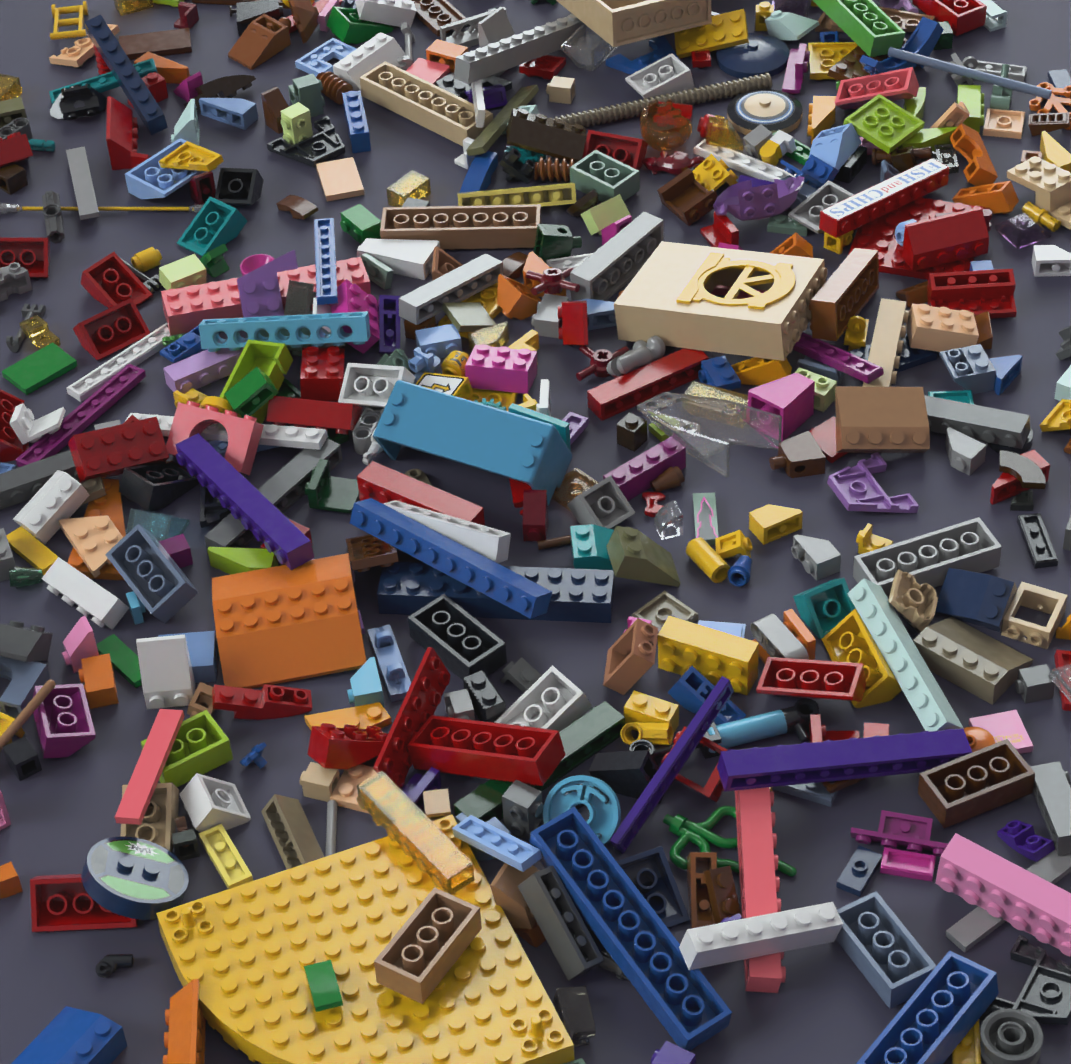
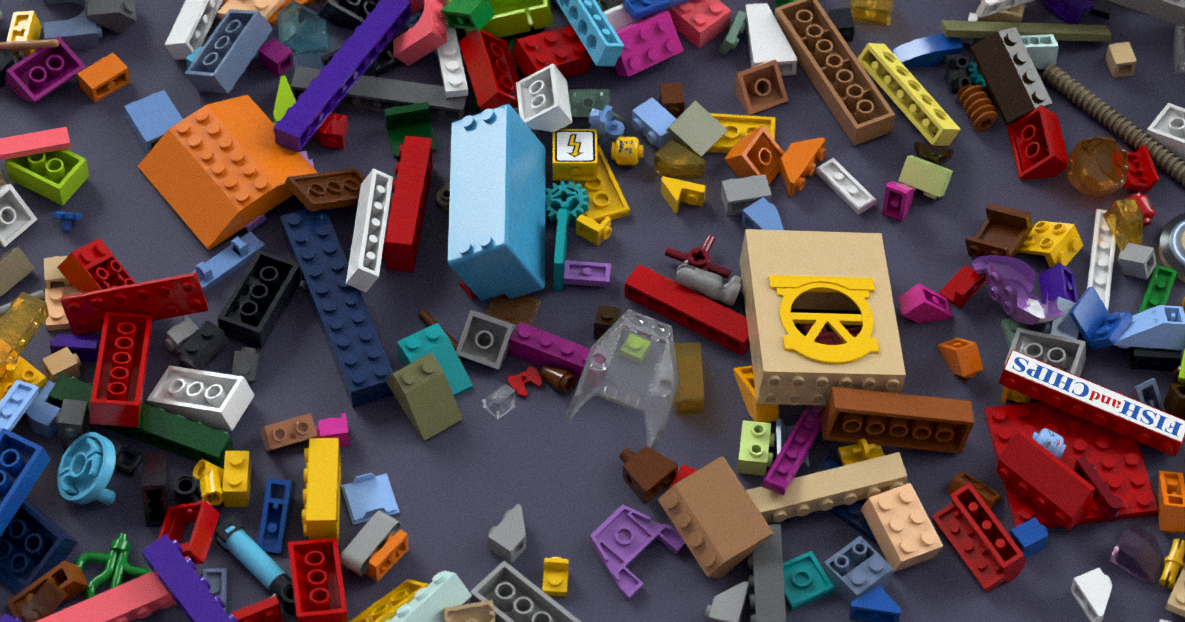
camera: 60 degrees right, 10 degrees up
(79, 644) = (131, 48): bright pink slope -> none
(122, 659) = (139, 81): green tile -> none
(165, 671) = (115, 116): white slope -> none
(201, 700) = (109, 150): medium nougat brick -> none
(268, 703) = (127, 194): red slope -> none
(361, 716) = (137, 260): light orange wing -> none
(366, 685) = (180, 258): medium azure slope -> none
(388, 323) = (666, 69): dark purple slope -> none
(450, 288) = (724, 98): light grey brick -> none
(451, 558) = (330, 247): blue brick -> none
(501, 368) = (638, 186): dark pink brick -> none
(513, 264) = (802, 131): reddish brown slope -> none
(535, 515) = (443, 293): dark red slope -> none
(544, 66) = (1152, 30): red plate -> none
(545, 400) = (593, 241): white plate -> none
(552, 281) = (779, 172): dark red bar -> none
(555, 241) = (852, 152): dark green torso -> none
(574, 322) = (730, 216): red slope -> none
(604, 175) = (984, 152): sand green brick -> none
(618, 259) = (841, 209): light grey brick -> none
(663, 606) = (376, 445): dark tan tile -> none
(672, 765) = (159, 509): dark purple tile -> none
(673, 163) = (1053, 200): dark red animal -> none
(705, 517) = (523, 428): tile -> none
(707, 560) = (461, 449): yellow brick -> none
(718, 373) = (727, 363): blue bracket -> none
(733, 544) = (493, 464): yellow bracket -> none
(740, 571) = (462, 481): blue cone -> none
(774, 522) = (538, 483): yellow slope -> none
(777, 147) = (1134, 279): leg -> none
(788, 397) = (705, 430): dark pink slope -> none
(824, 606) = (440, 555): teal slope -> none
(984, 329) = (937, 568): dark orange slope -> none

